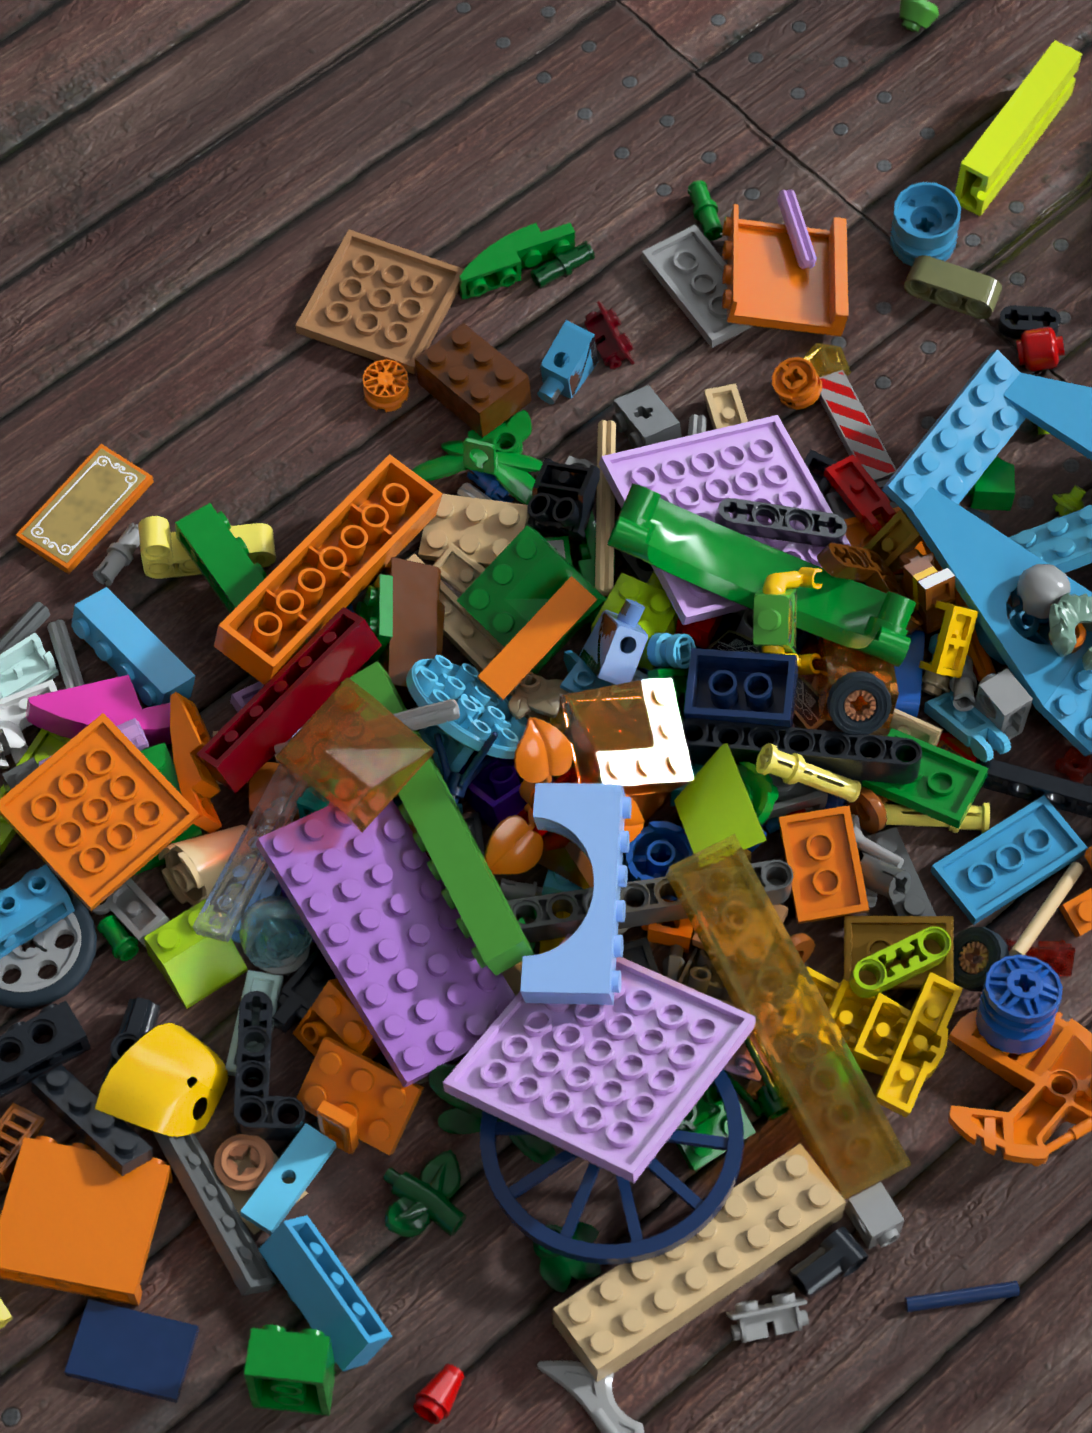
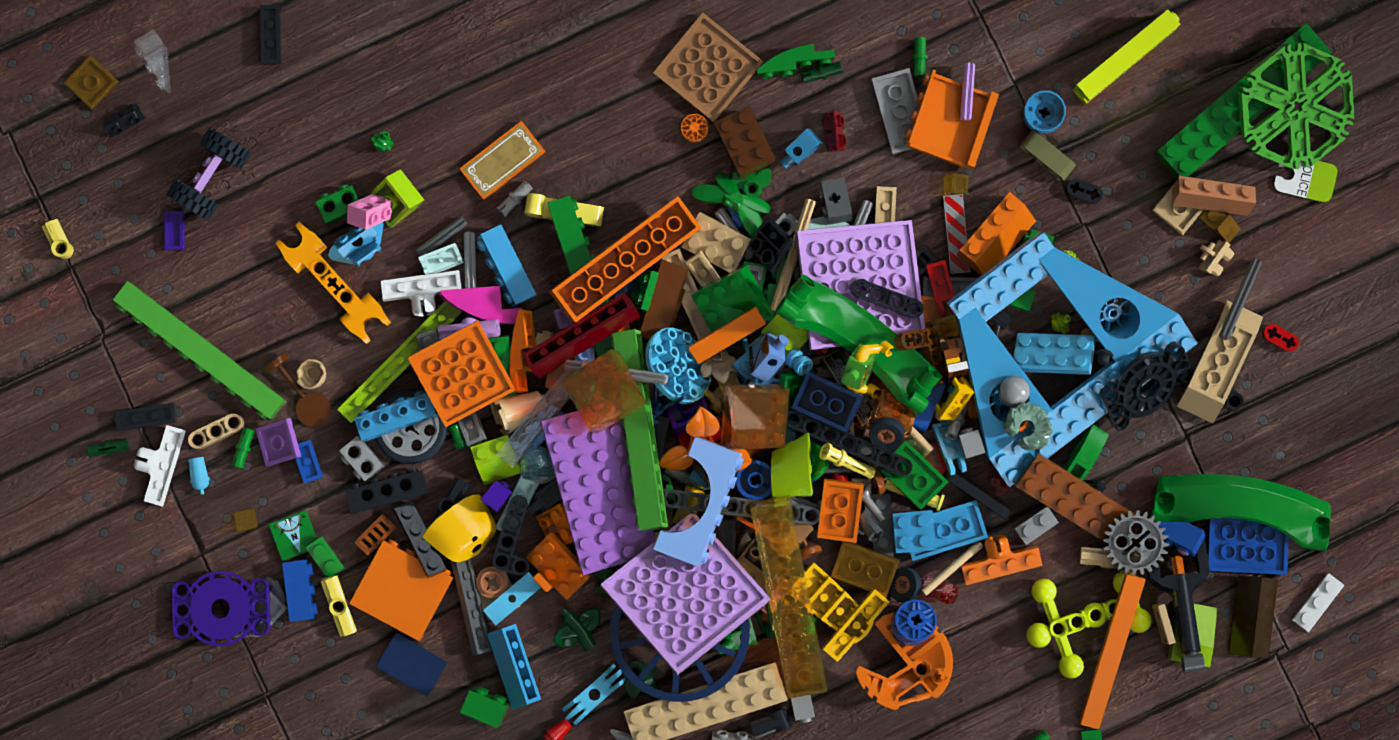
camera: 20 degrees right, 25 degrees up
(213, 1011) = (497, 495): none -> dark purple slope
(480, 1327) = (605, 689): none -> medium azure piece
(796, 382) = (931, 197): orange wheel -> none
(903, 949) = (864, 573): lime beam -> none
(916, 400) = (997, 235): none -> orange slope
(960, 863) = (913, 531): none -> dark azure brick
(1040, 349) = (1082, 214): red head -> none

